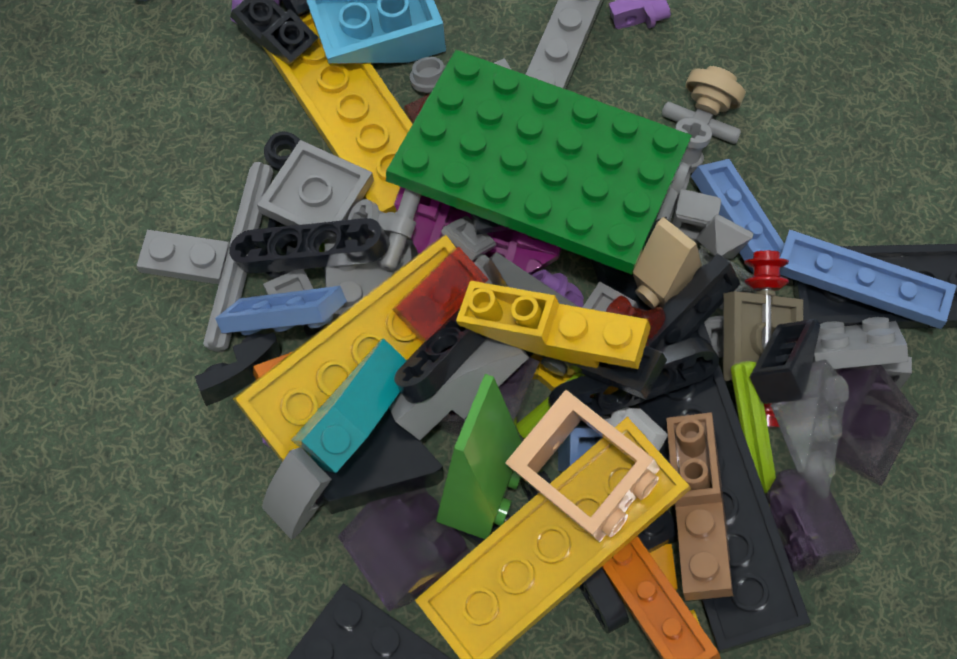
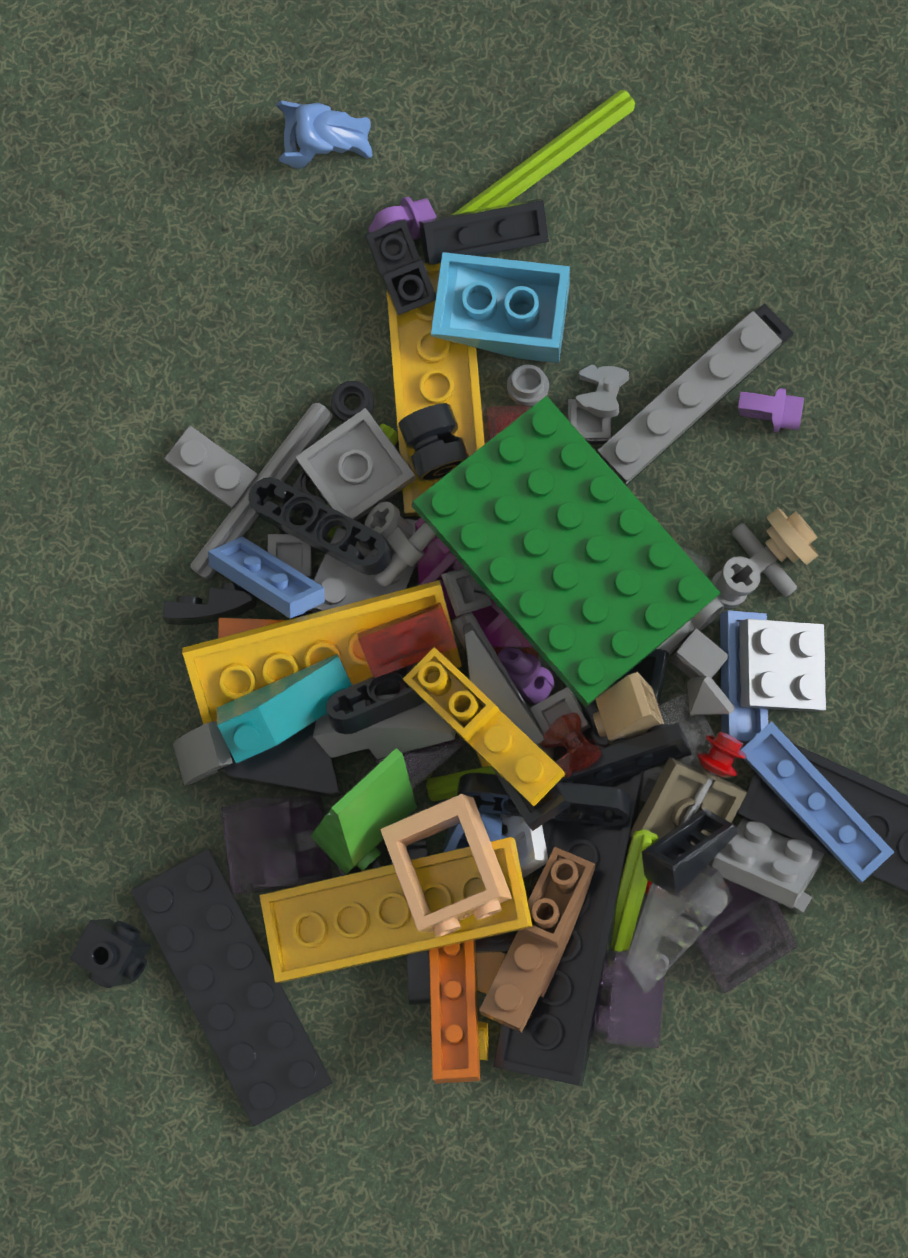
camera: 30 degrees right, 15 degrees up
(369, 135) = (434, 440): none -> black wheel
(497, 48) = (603, 401): none -> light grey piece
(767, 191) = (782, 665): none -> plate

